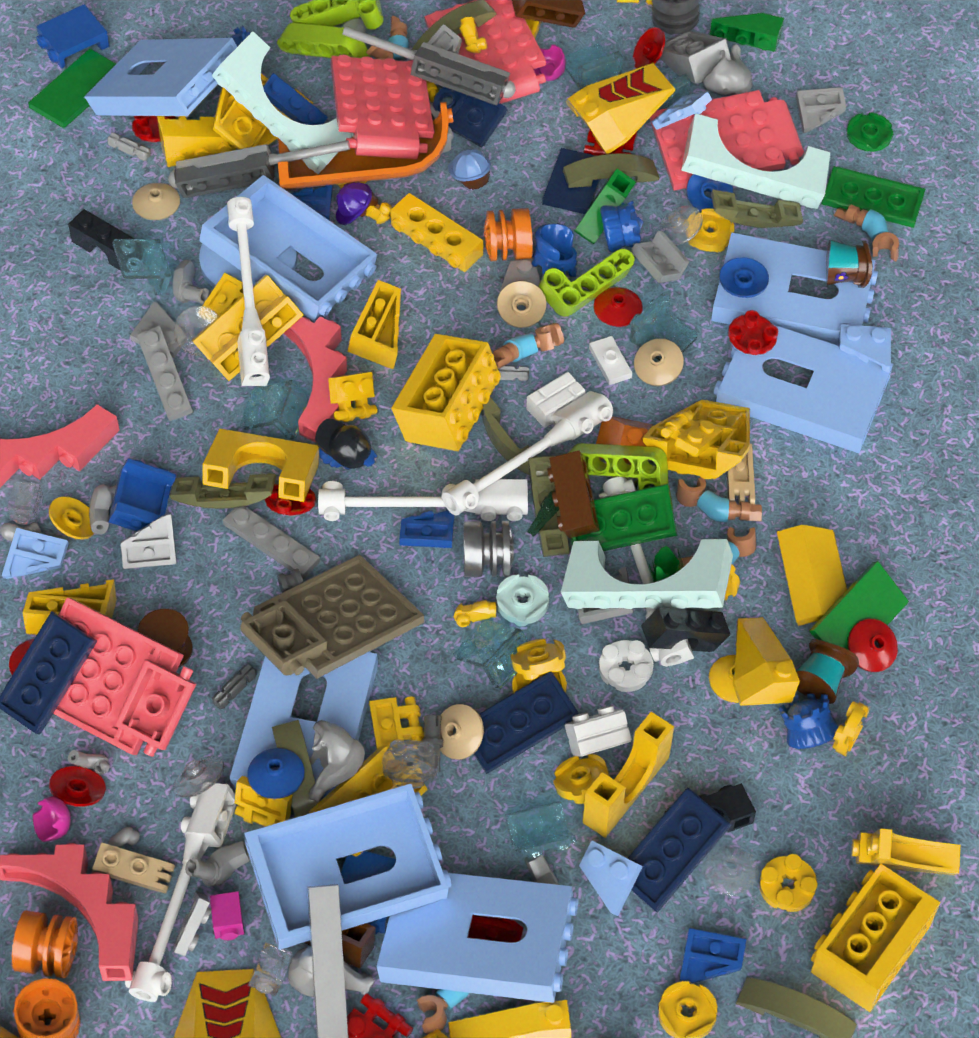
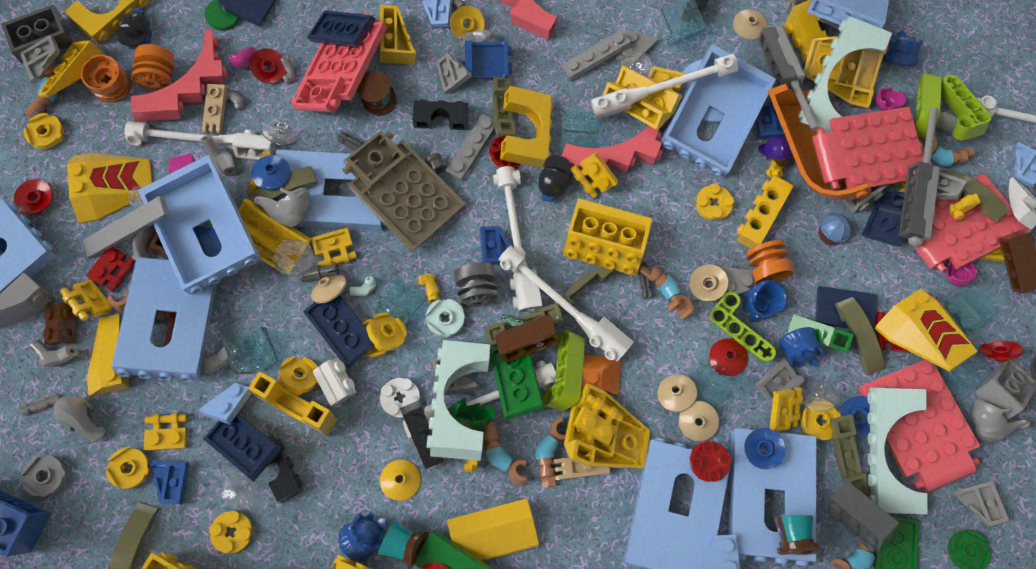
camera: 80 degrees right, 15 degrees up
(183, 285) = (676, 52): light grey arm -> none
(198, 914) = (176, 148): wing -> none
(217, 549) = (426, 111): none -> black arch
(291, 102) = (858, 90): blue plate -> none
(309, 79) = (888, 99): none -> dark pink hair
(377, 327) = (664, 184): yellow wedge -> none
(412, 271) = (714, 212): none -> yellow plate
(461, 690) = (365, 289): none -> light aqua arm
(553, 397) = (624, 318): white brick -> none
(610, 360) = (673, 356): white plate -> none
(649, 961) = (165, 439): none -> yellow plate
(682, 108) = (931, 381): light blue wing -> none
(695, 253) = (786, 409): none -> yellow plate
(697, 356) = (706, 429): none -> tan dish
(762, 665) = (403, 494): yellow wedge -> none
(831, 205) = (862, 517): none -> dark grey brick

